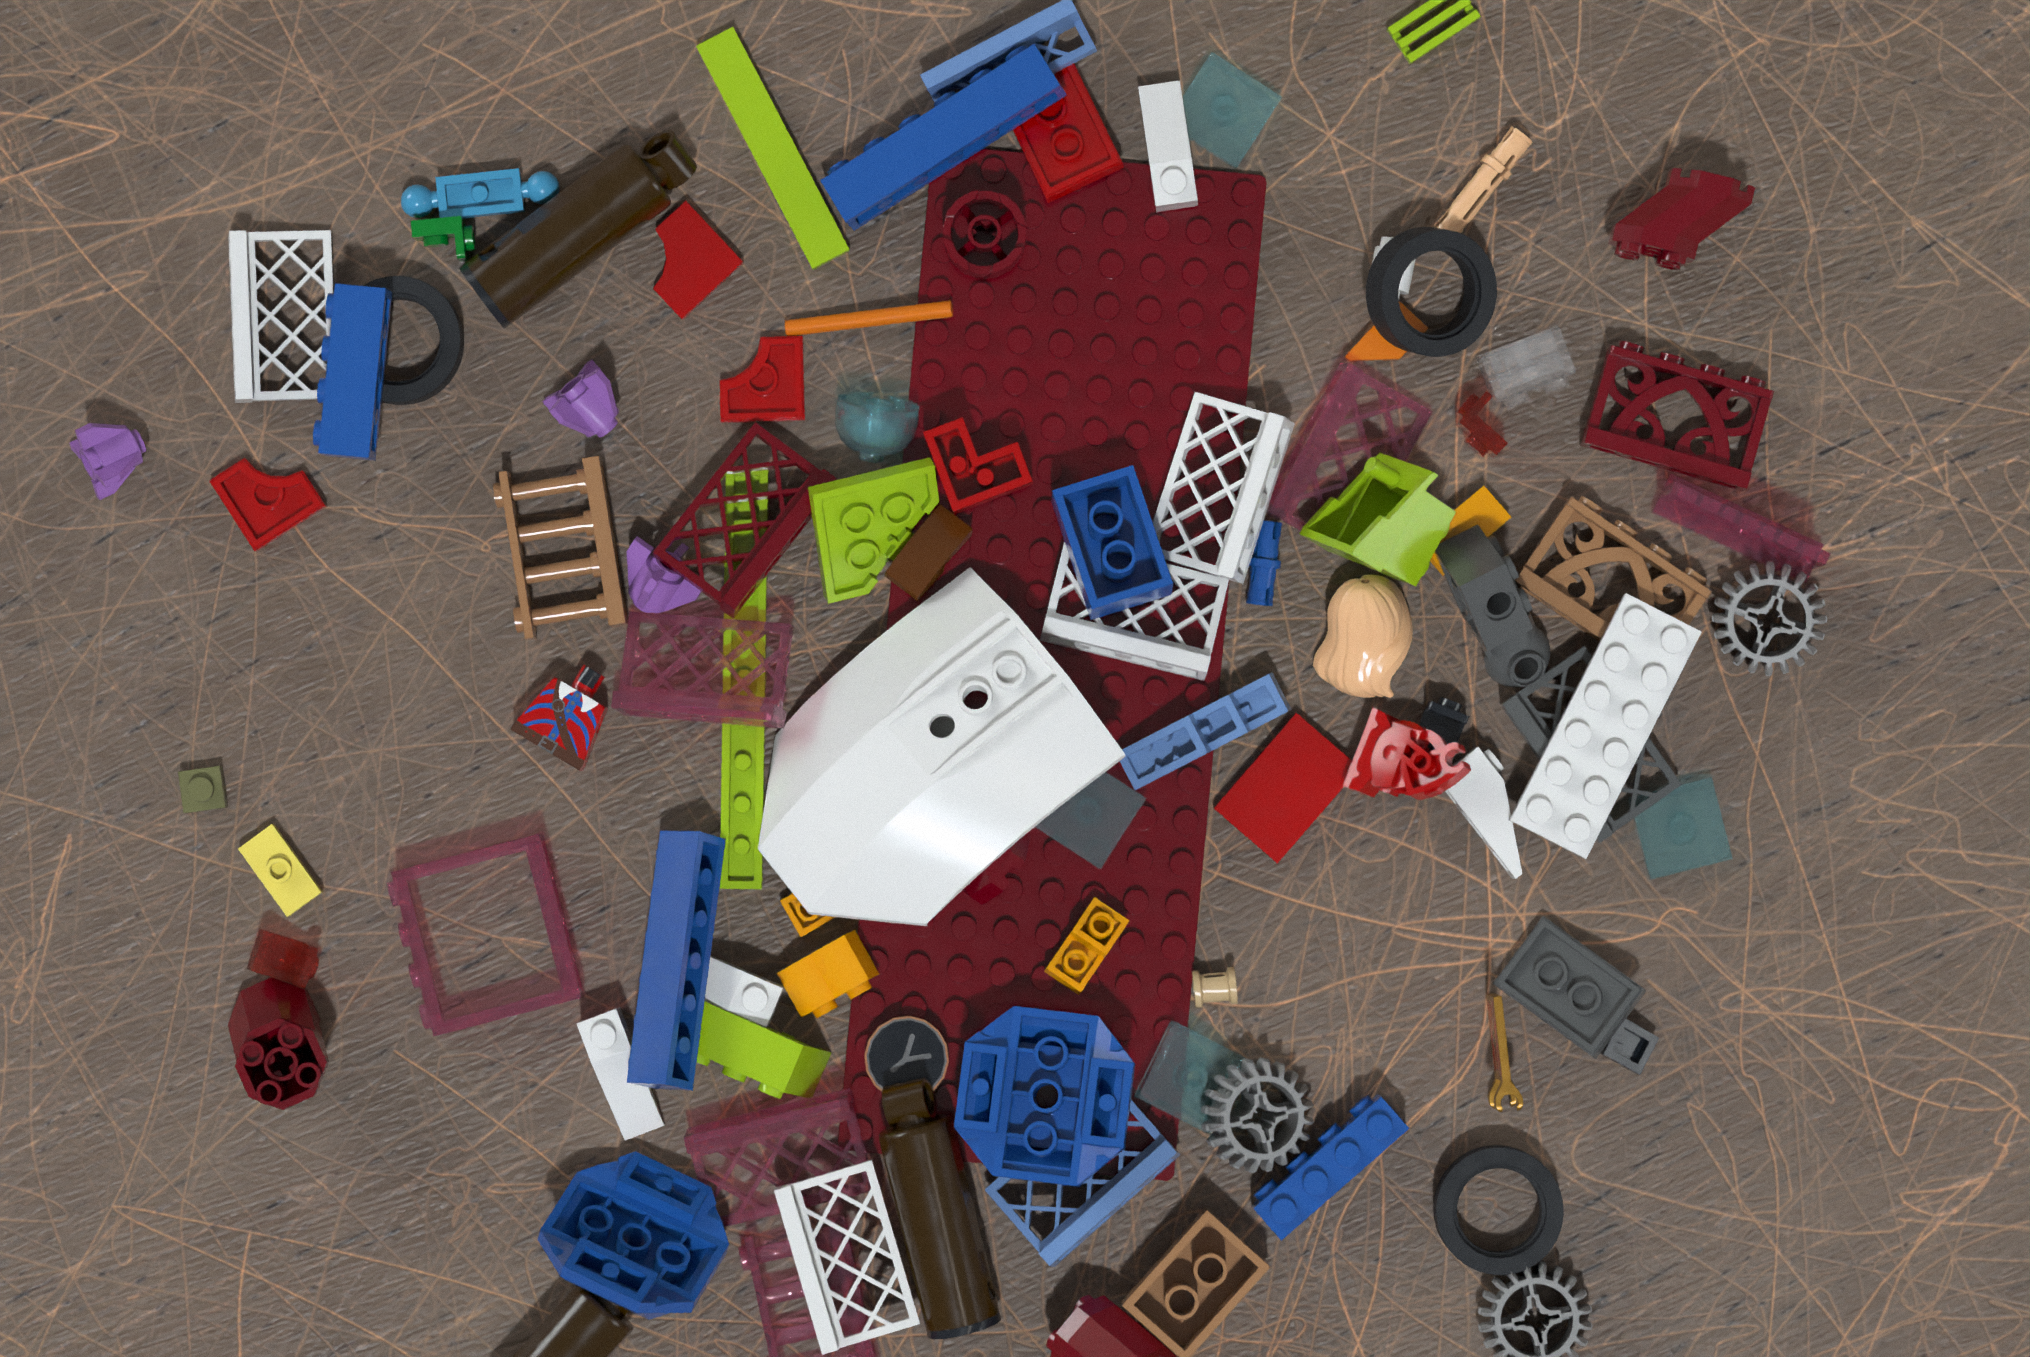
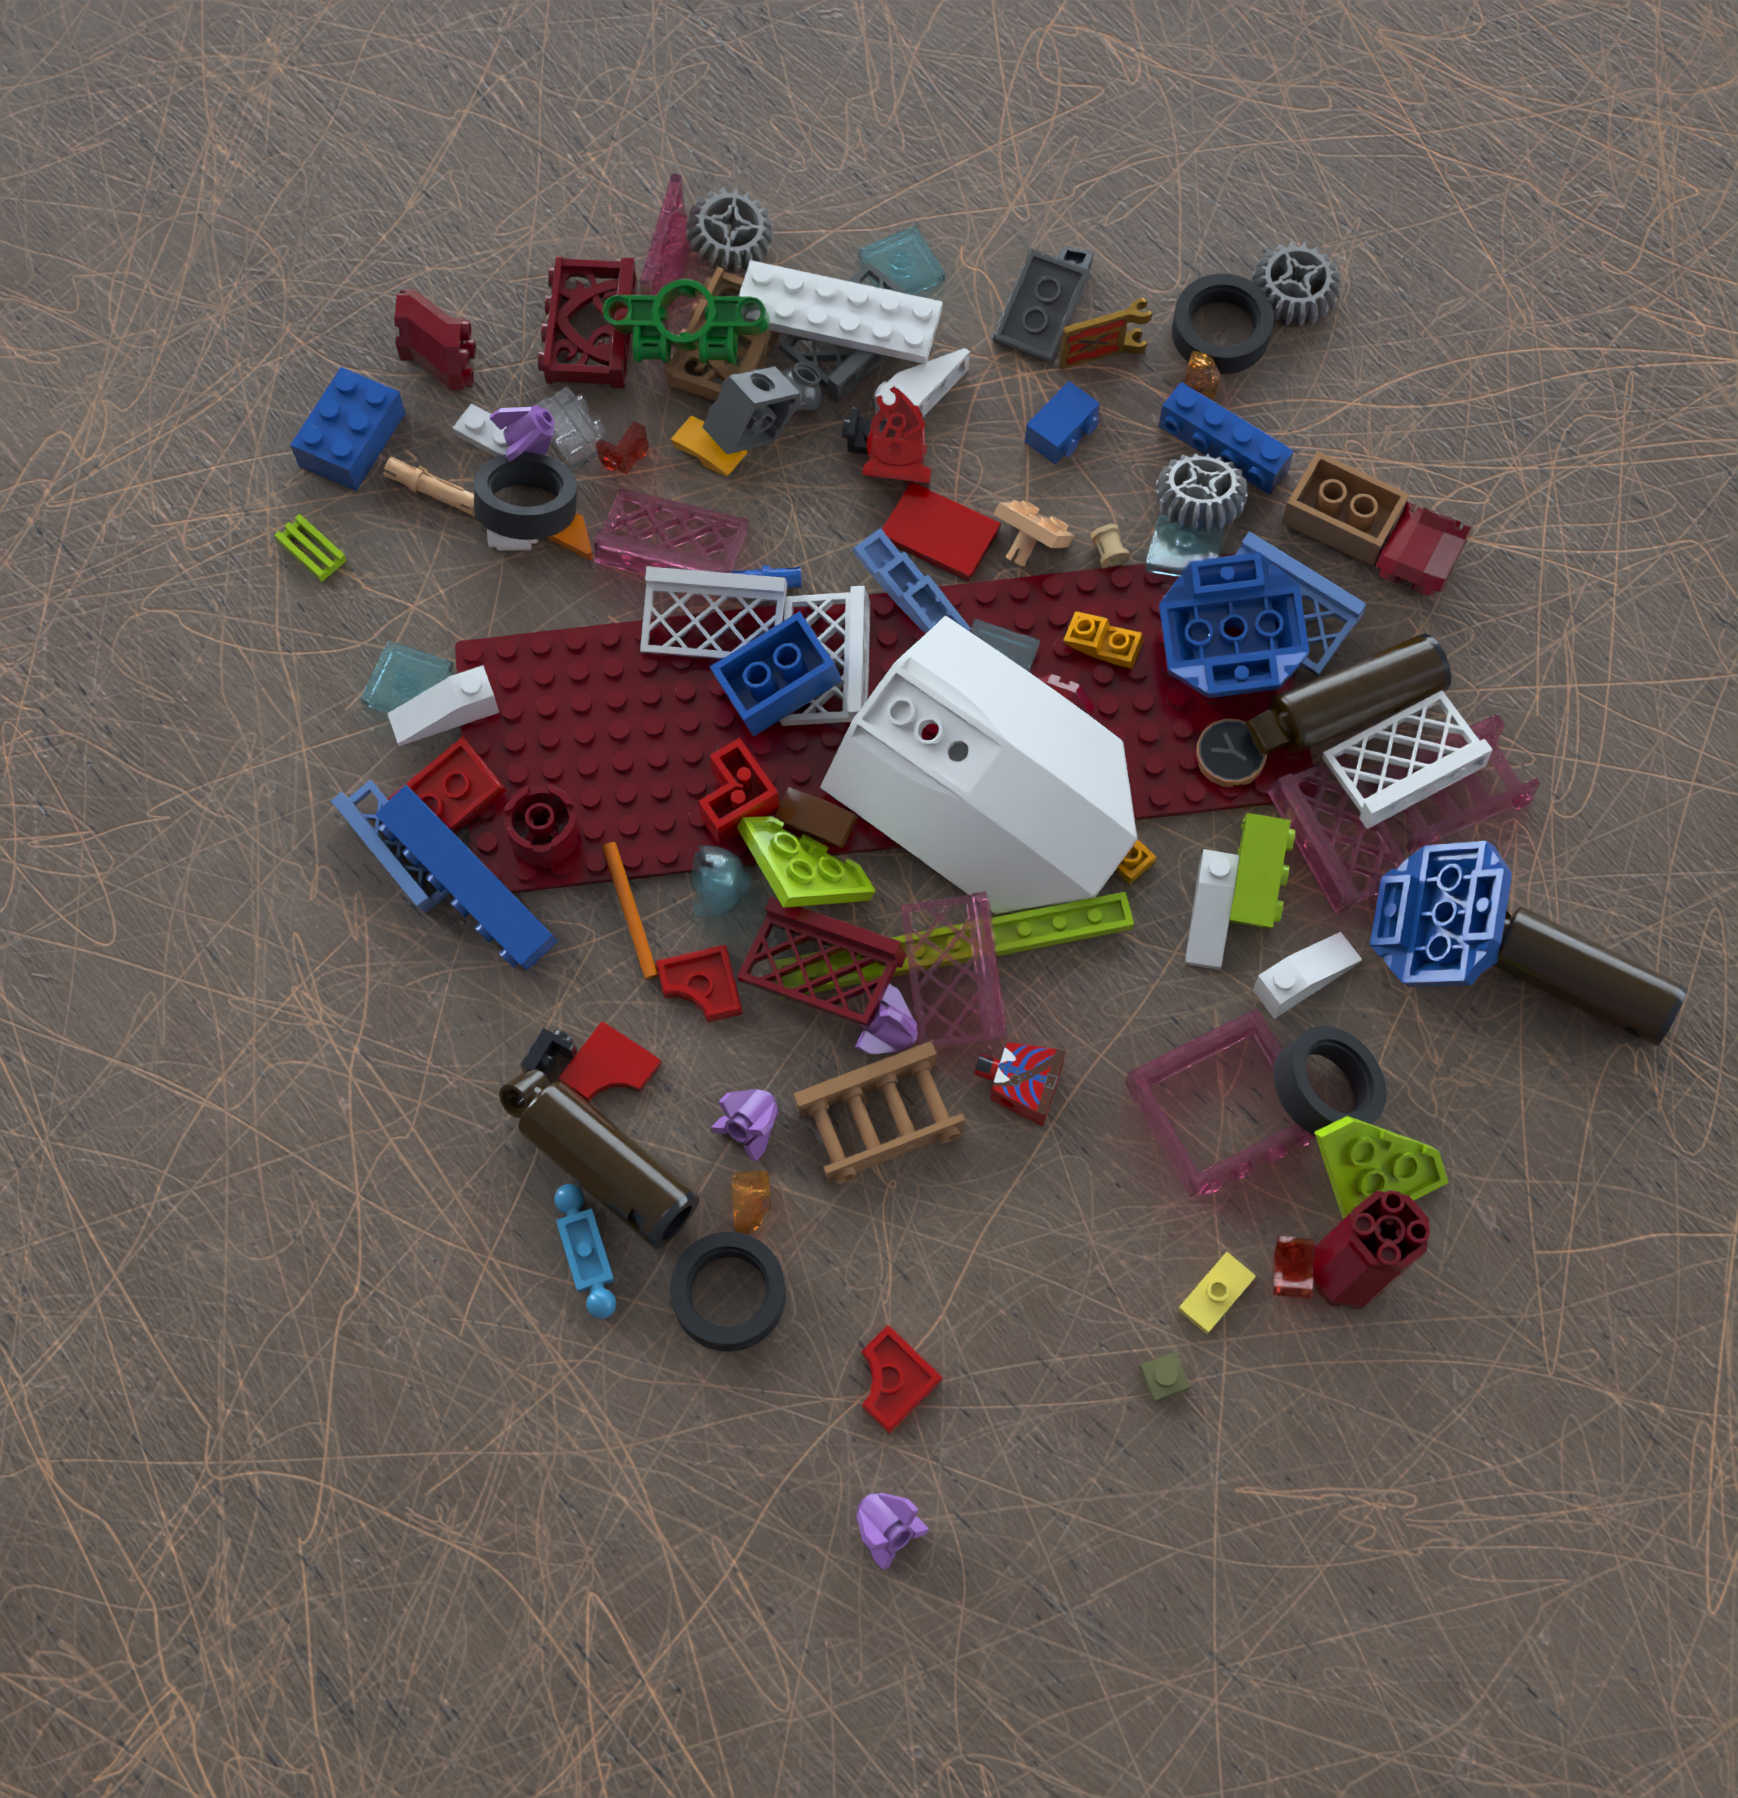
camera: 105 degrees left, 20 degrees down
(245, 311) = (733, 1433): white fence -> none
(353, 372) = (764, 1308): blue brick -> none
(367, 1080) = (1372, 1159): none -> lime plate
(437, 231) = (626, 1279): green bracket -> none
(464, 1099) = (1354, 1061): none -> black tyre
(494, 384) = (750, 1200): none -> clear orange rock
(676, 960) = (1205, 937): blue brick -> none
(711, 186) = (542, 1051): none -> black bracket
(772, 148) = (499, 1020): lime tile -> none
(827, 974) = (1181, 824): light orange brick -> none
(1252, 897) = (1032, 529): none -> light nougat plate
(1365, 637) = (809, 494): light nougat piece -> none
(1384, 520) = (711, 488): lime piece -> none
(1397, 972) = (1062, 423): none -> blue piece
(1421, 1161) = (1203, 375): none -> clear orange rock
(1520, 306) = (527, 429): none -> medium lavender brick
(1546, 266) = (480, 431): none -> white plate
(1583, 92) = (348, 428): none -> blue brick
(1609, 489) = (716, 338): none -> green piece

